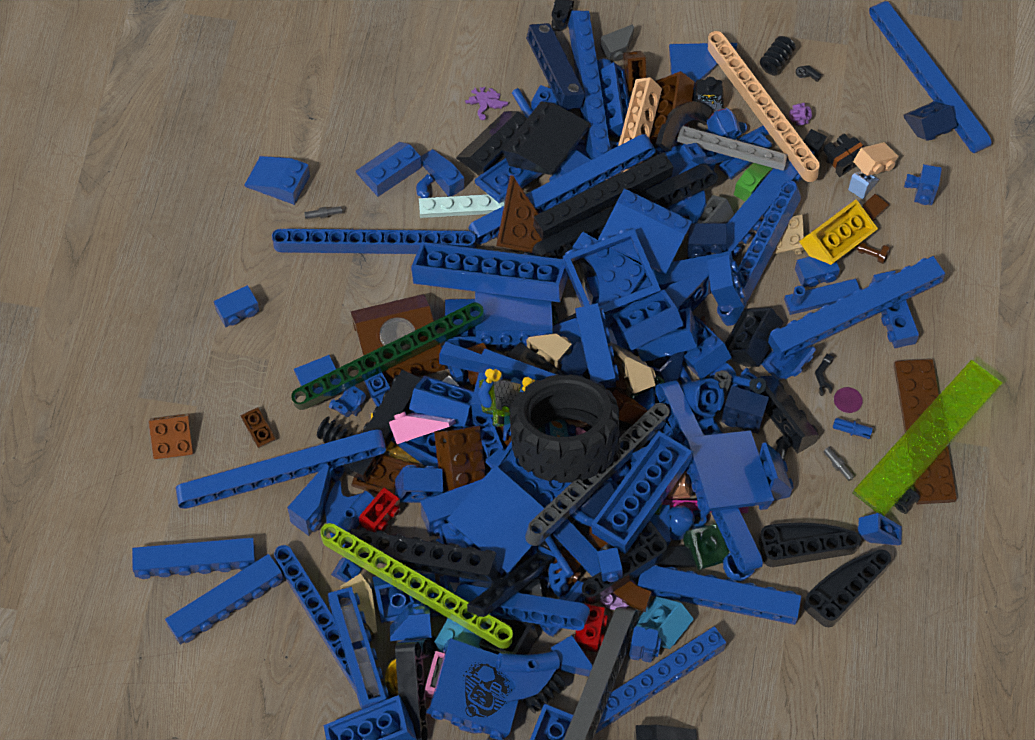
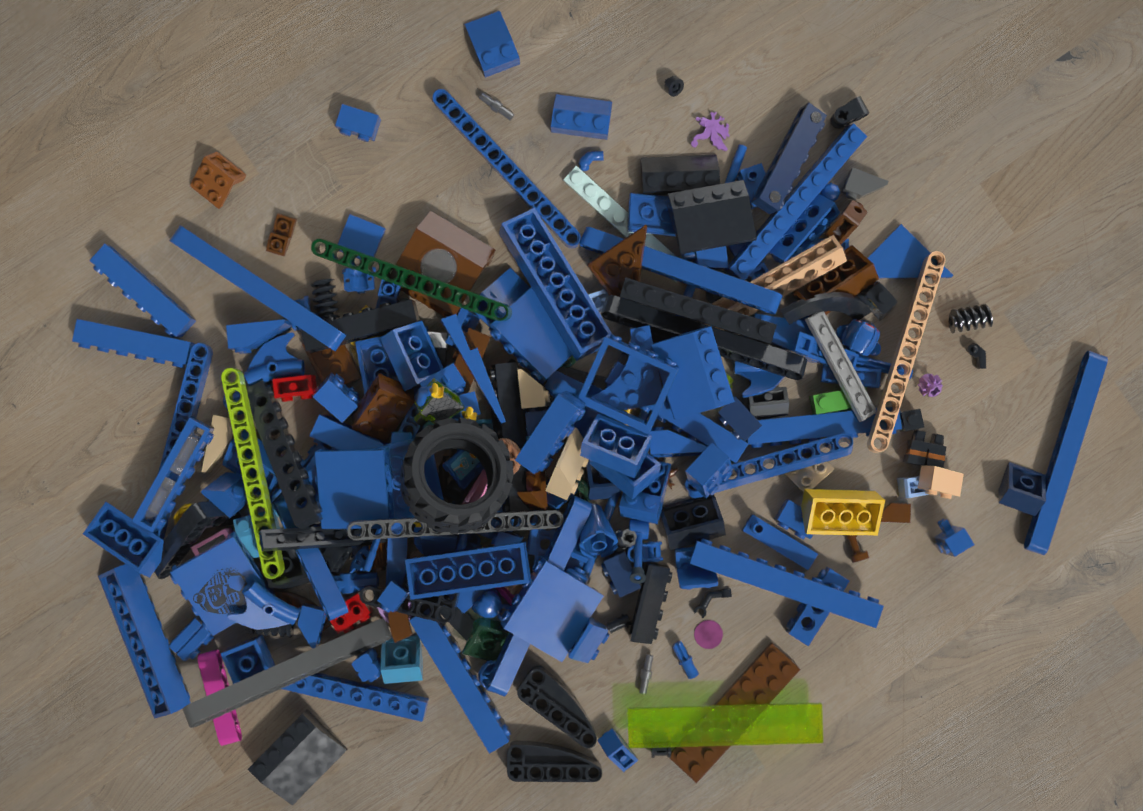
camera: 50 degrees right, 25 degrees up
(415, 425) = (372, 356): bright pink slope -> none
(429, 95) = (673, 86): none -> black tile
(443, 172) = (615, 159): blue slope -> none

